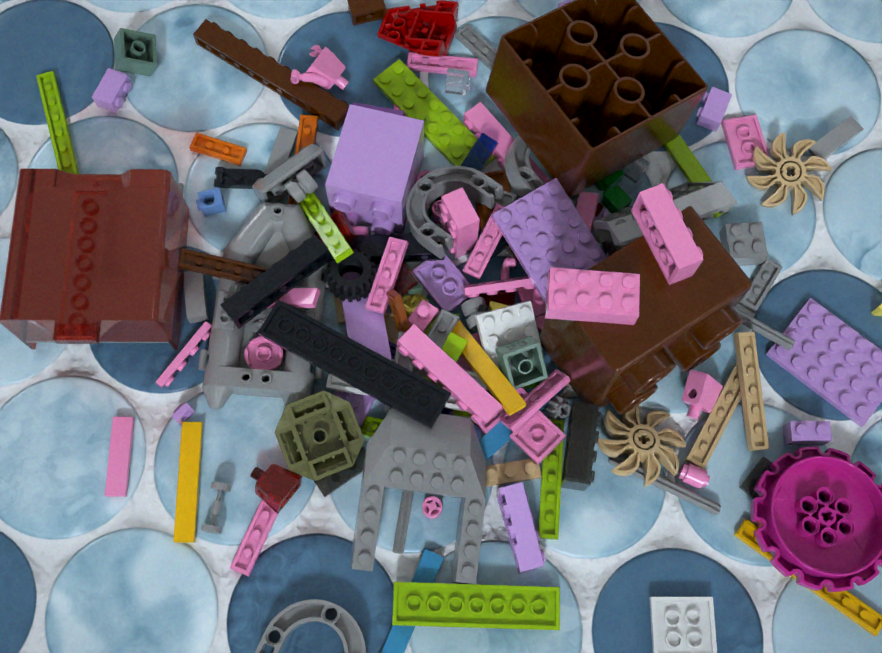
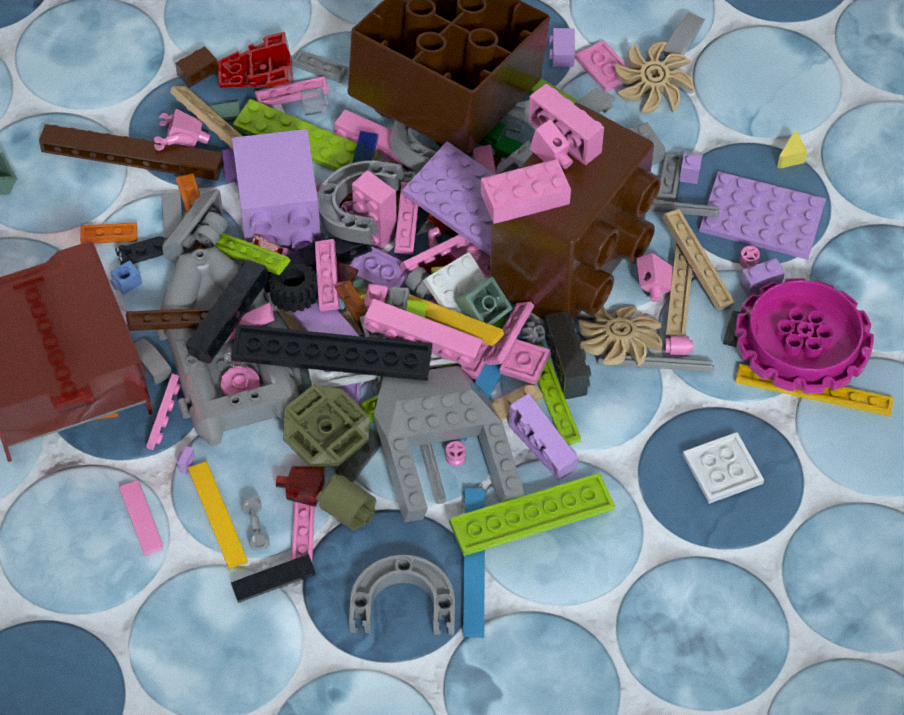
camera: 20 degrees left, 15 degrees down
(208, 573) = (273, 578): none -> black plate
(306, 524) = (347, 502): none -> olive cylinder
(354, 65) = (205, 114): none -> tan plate
(370, 62) = (227, 111): none -> sand green tile
(641, 254) = (551, 144): none -> bright pink torso
(786, 282) = (690, 167): none -> lavender slope
(803, 400) = (748, 253): none -> bright pink wheel

